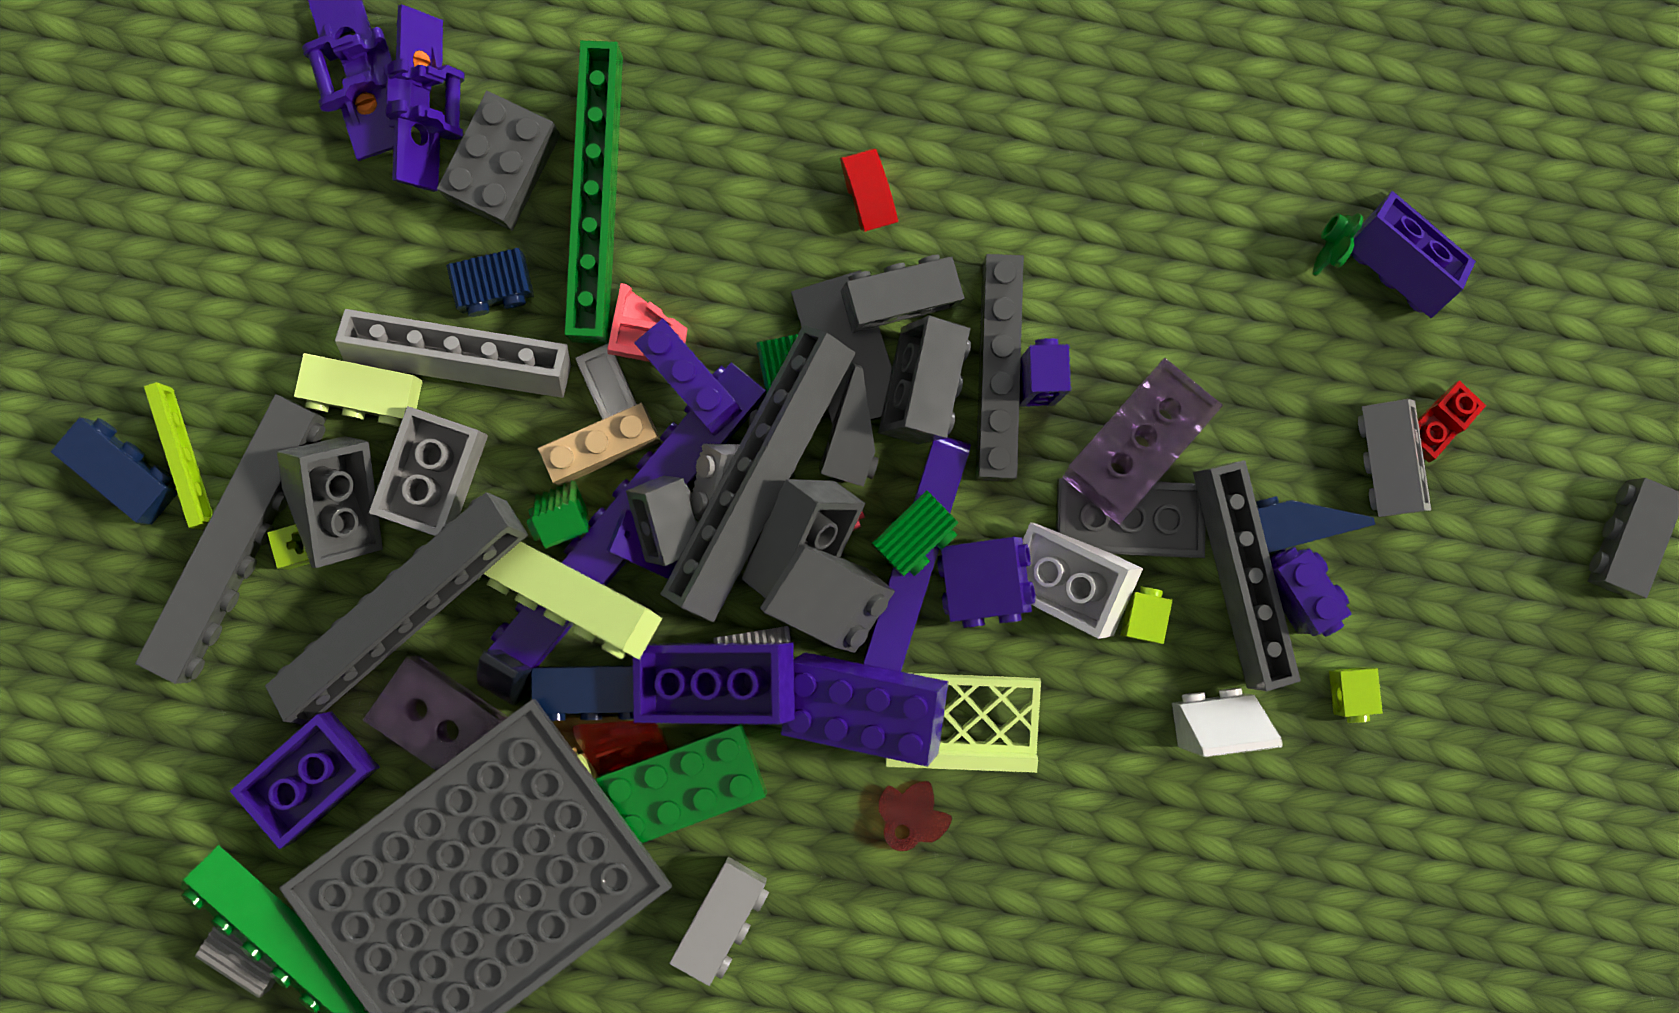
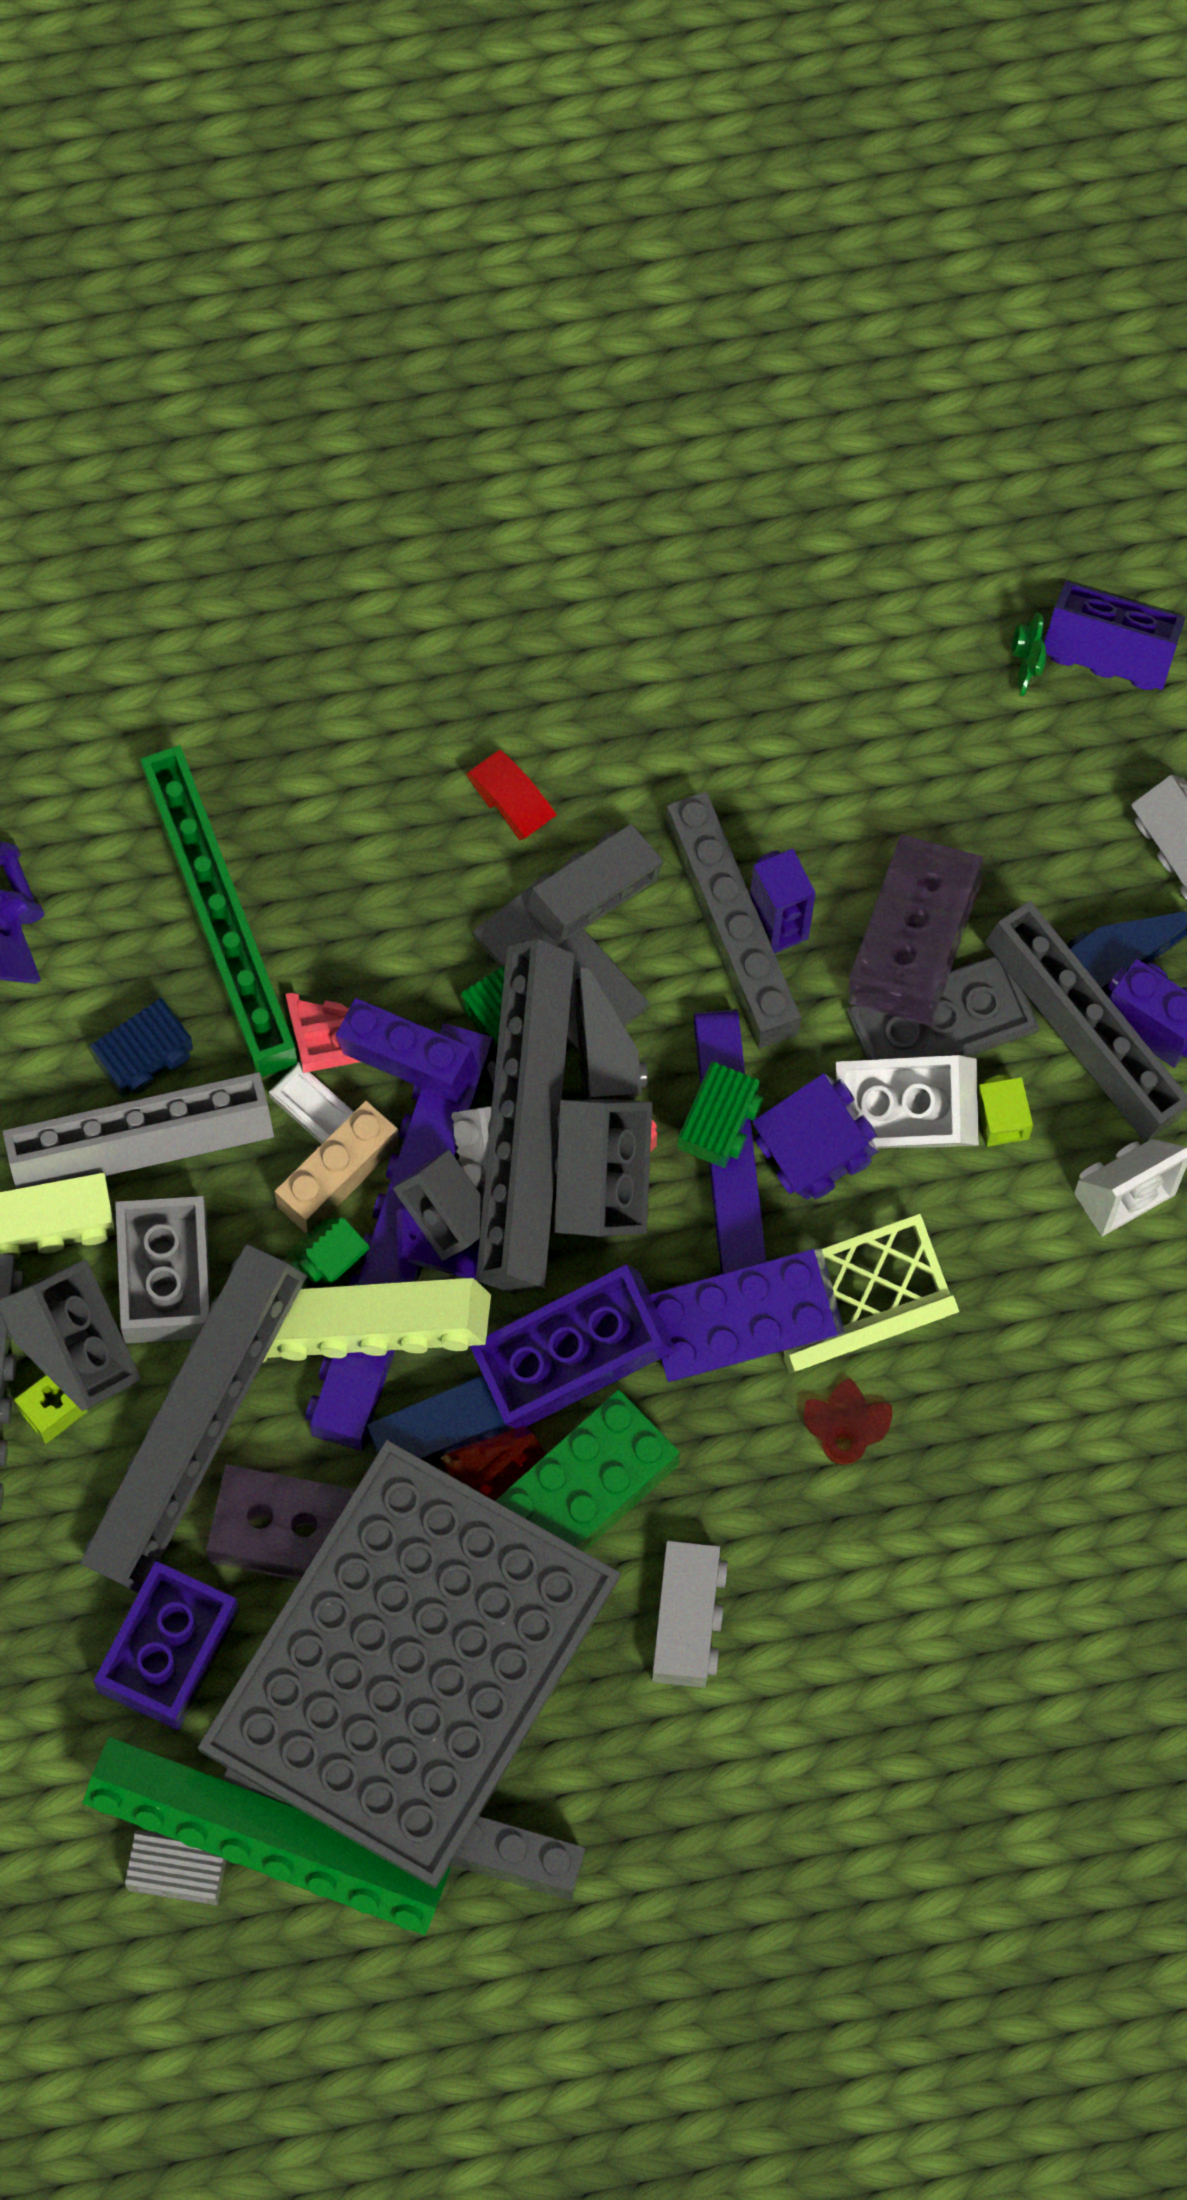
camera: 20 degrees left, 15 degrees down
(499, 160) = (99, 920): dark grey brick -> none
(503, 675) = (341, 1440): black slope -> none
(828, 598) = (656, 1214): dark grey slope -> none
(925, 380) = (658, 958): dark grey brick -> none

